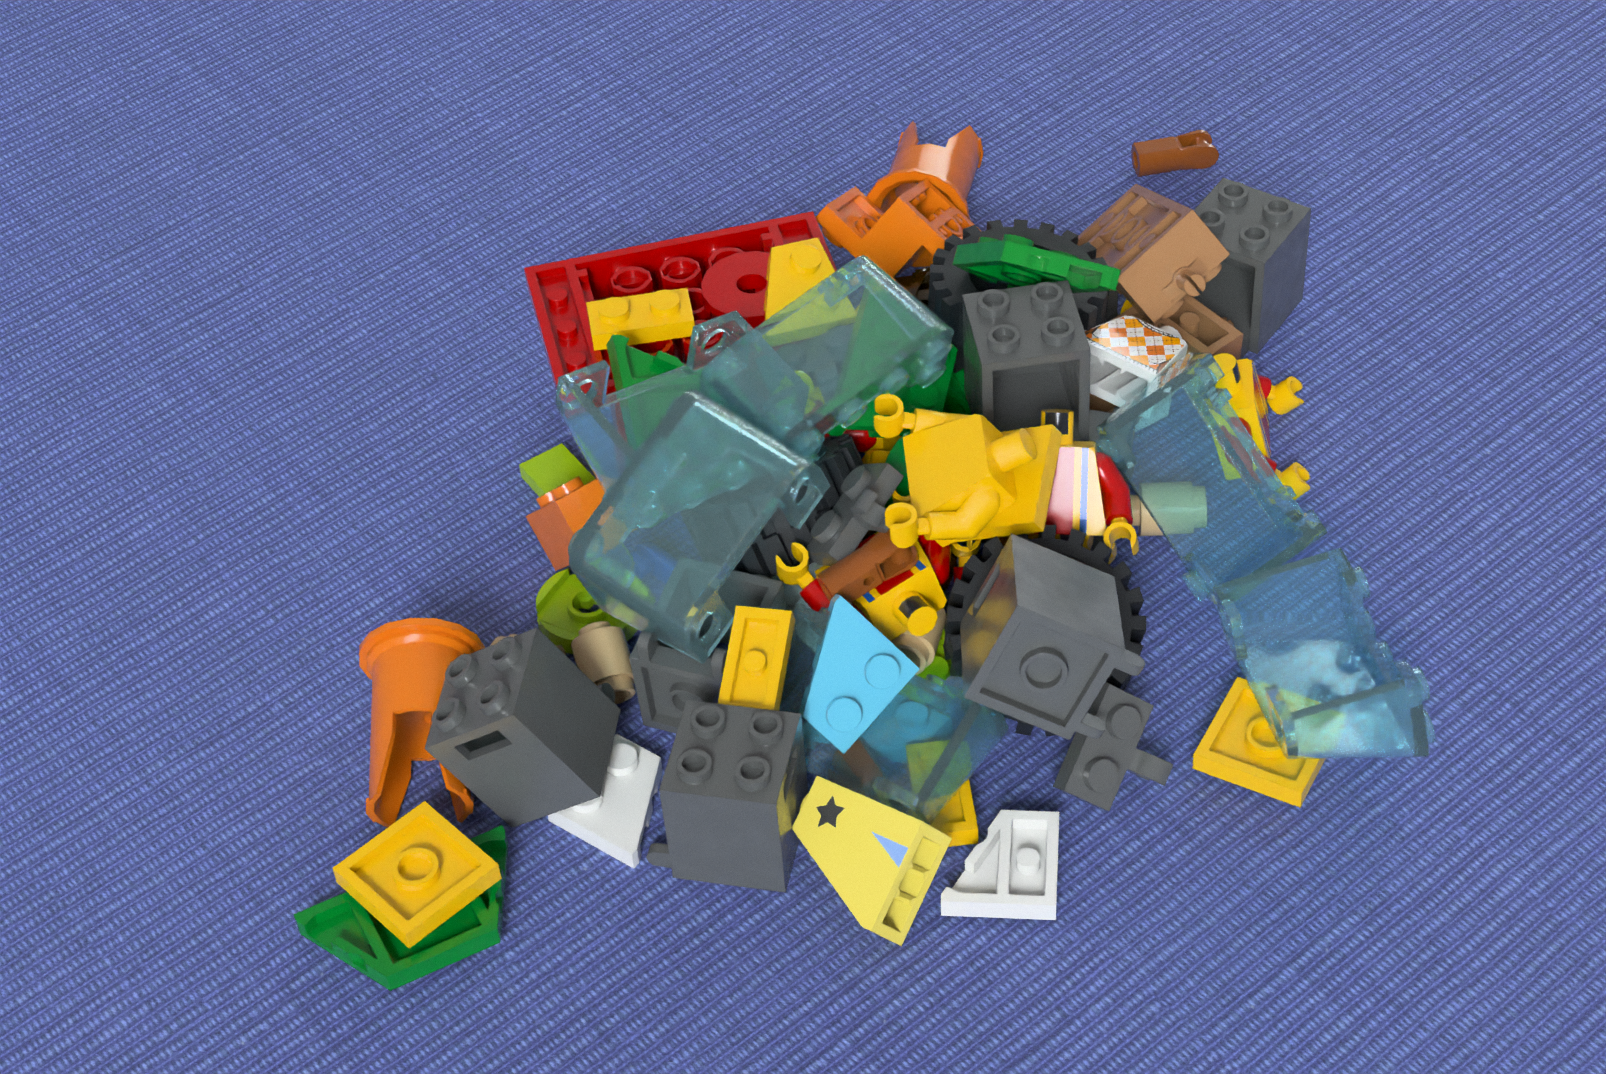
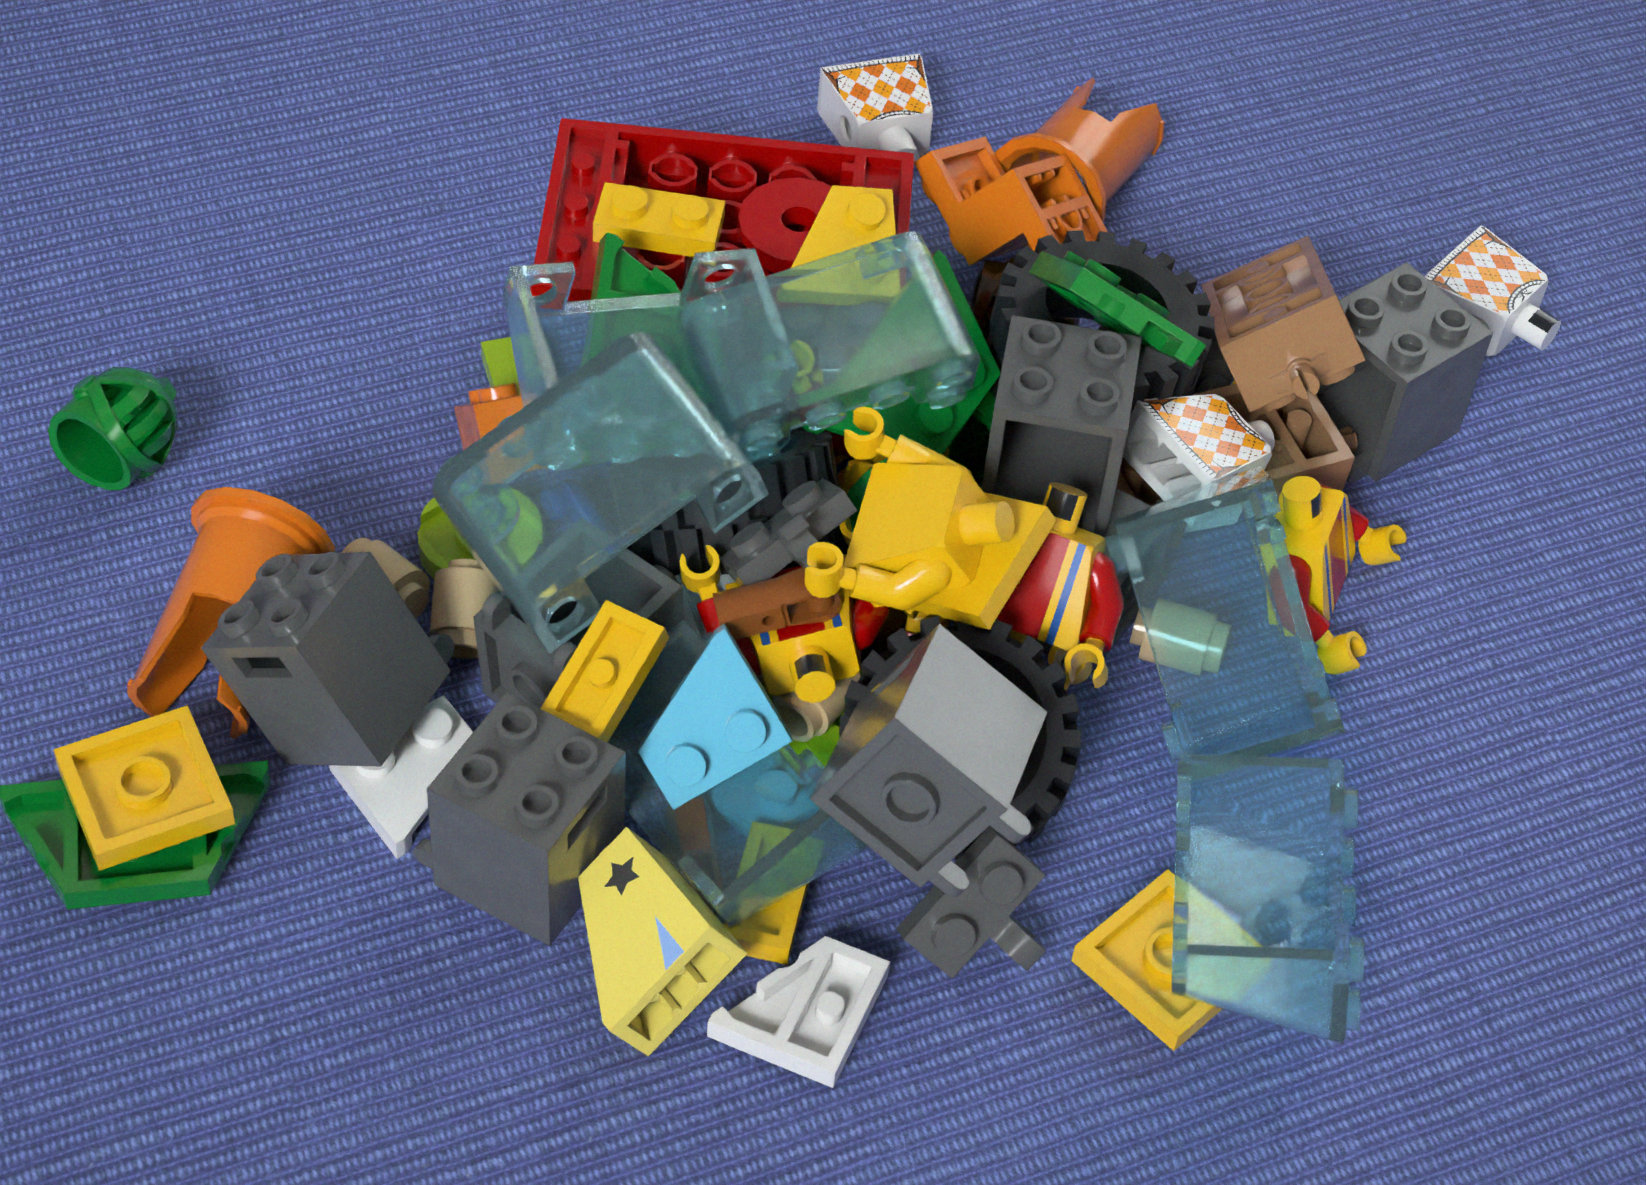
camera: 10 degrees right, 5 degrees up
(259, 617) = (115, 427): none -> green helmet
(748, 190) = (878, 104): none -> white torso
(1173, 153) = (1383, 208): dark orange bar -> none
(1291, 177) = (1497, 290): none -> white torso

